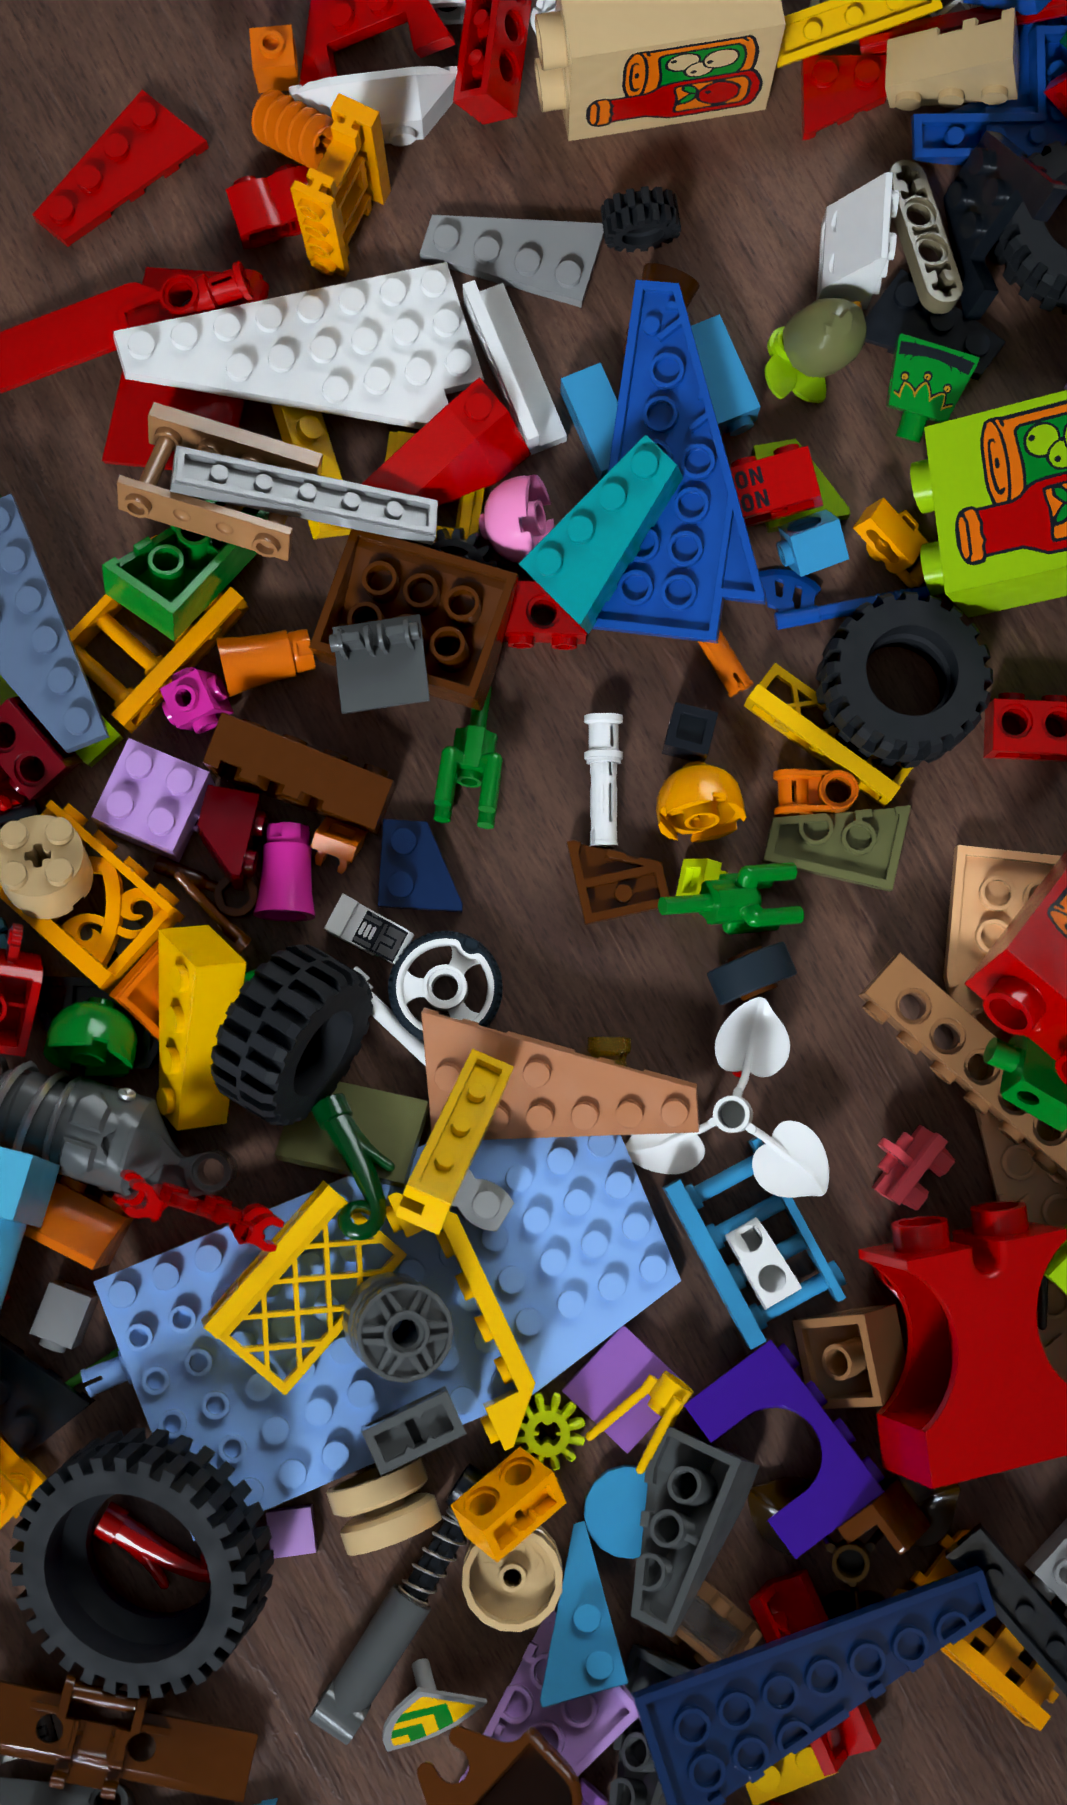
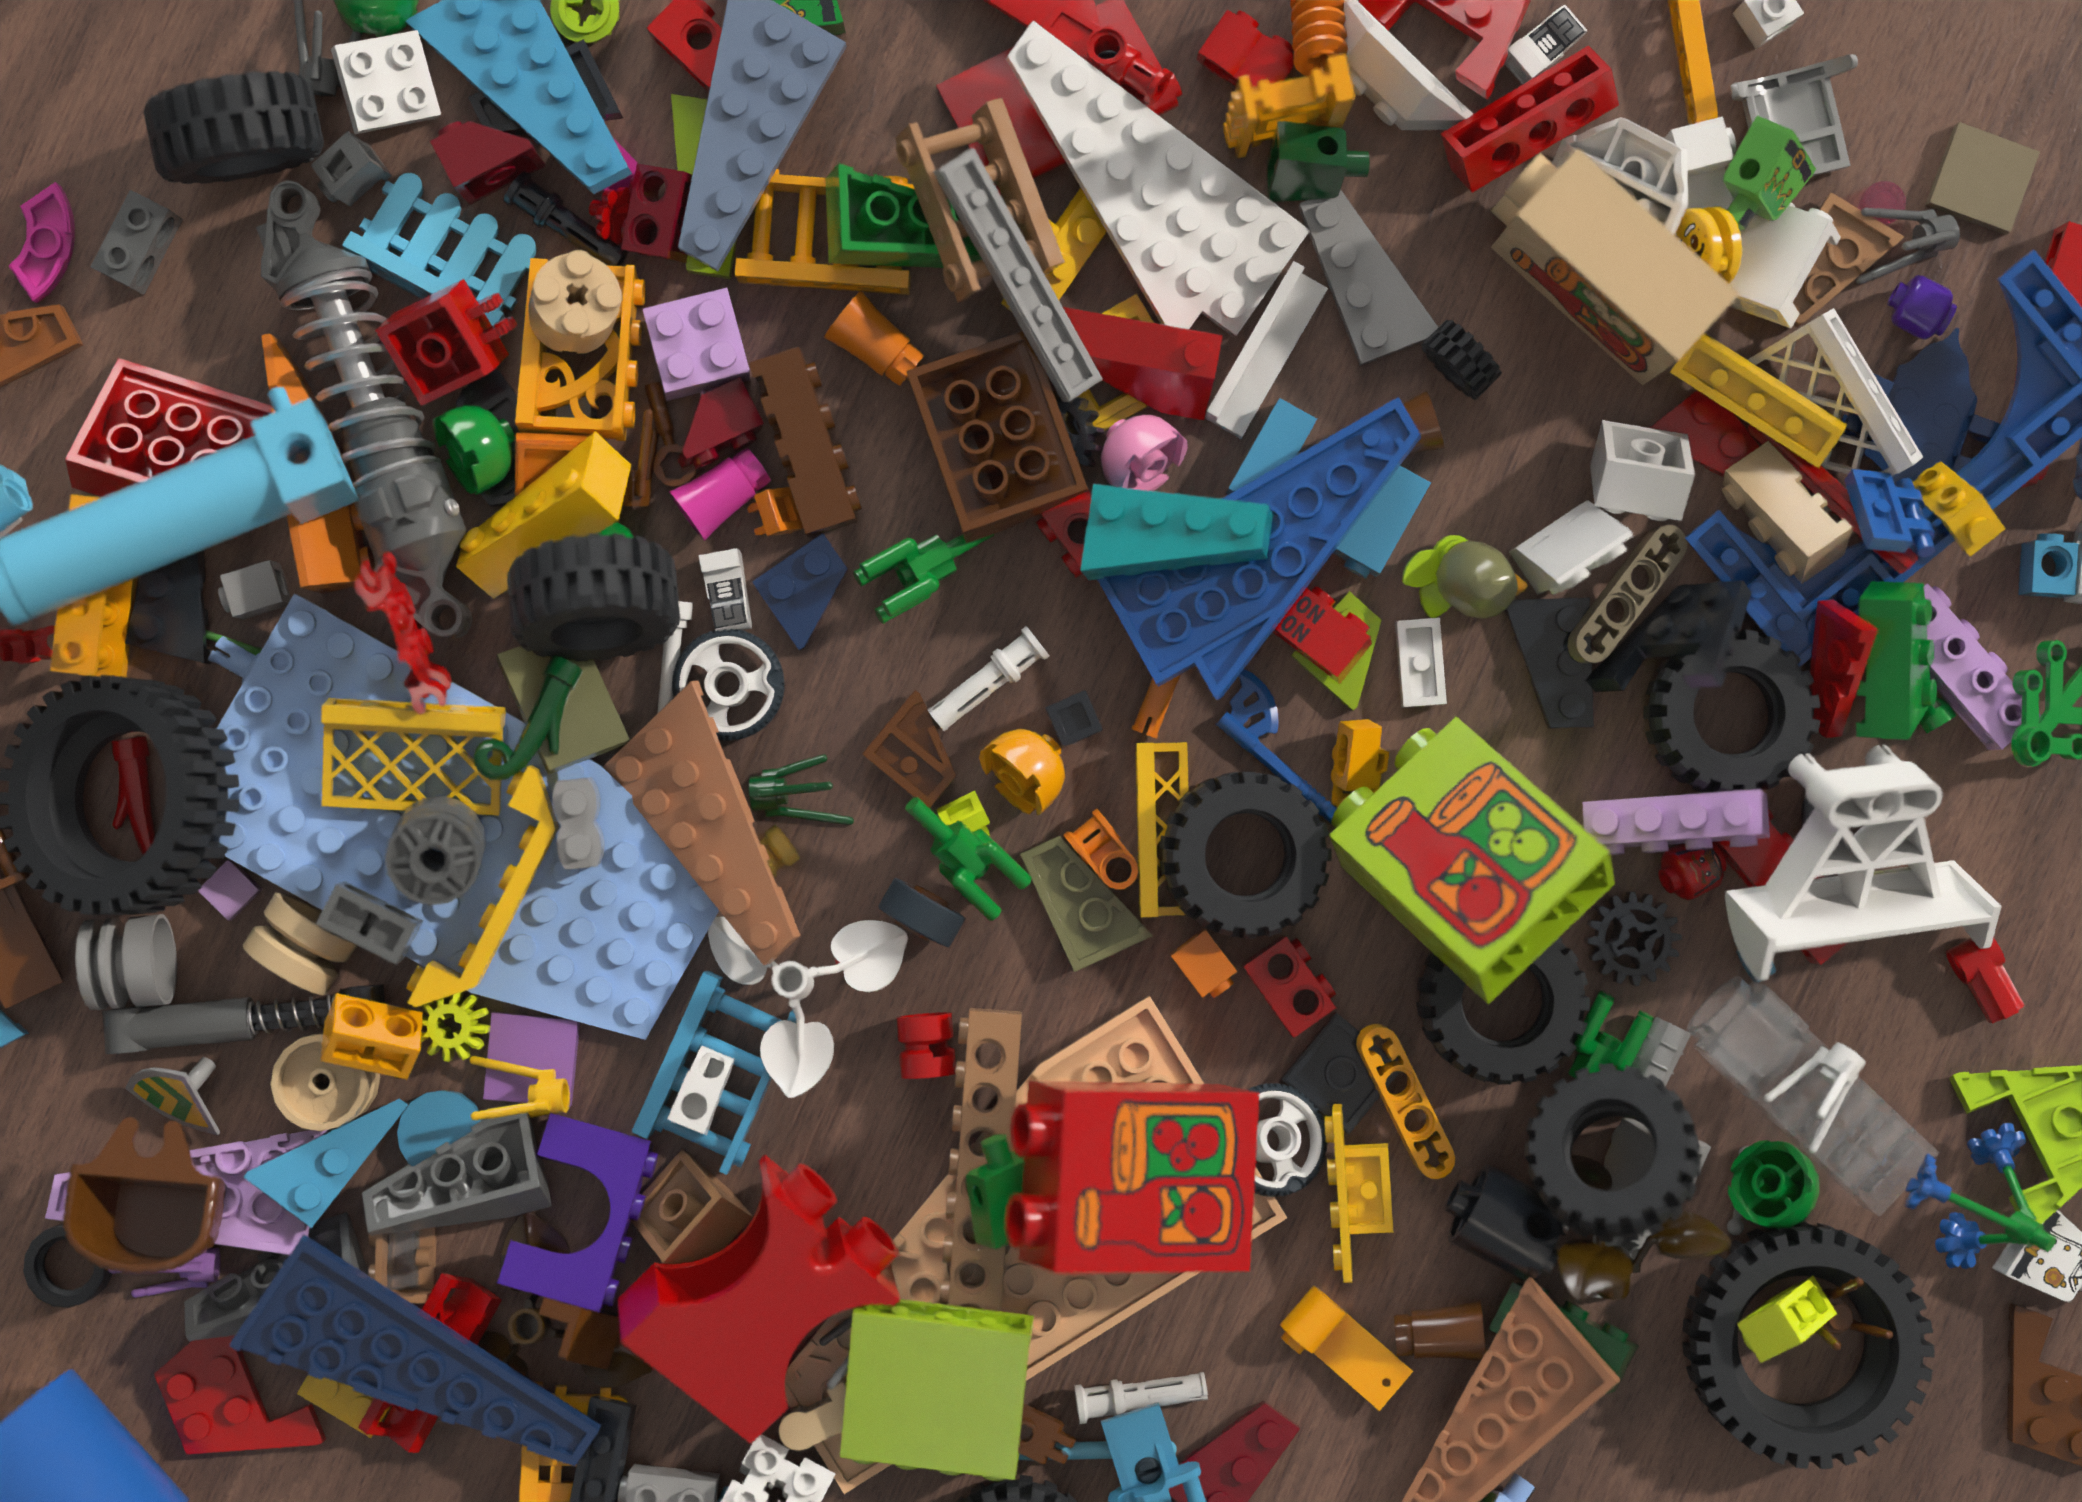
camera: 50 degrees right, 5 degrees up
(195, 700) = (799, 314): dark pink brick -> none
(281, 1671) = (126, 962): none -> light grey wheel
(380, 663) = (933, 438): dark grey hinge -> none
(395, 216) = (1310, 162): none -> dark green torso
(454, 1142) = (604, 785): yellow brick -> none
(558, 1022) = (769, 792): none -> dark green plant
(812, 543) = (1302, 698): dark azure brick -> none
(837, 147) = (1641, 471): none -> white brick
(852, 434) = (1420, 662): none -> white plate
(862, 1053) = (926, 1045): none -> red wheel
(907, 1163) = (869, 1144): coral hips -> none
(926, 383) = (1505, 689): green torso -> none
(964, 782) = (1204, 964): none -> orange brick

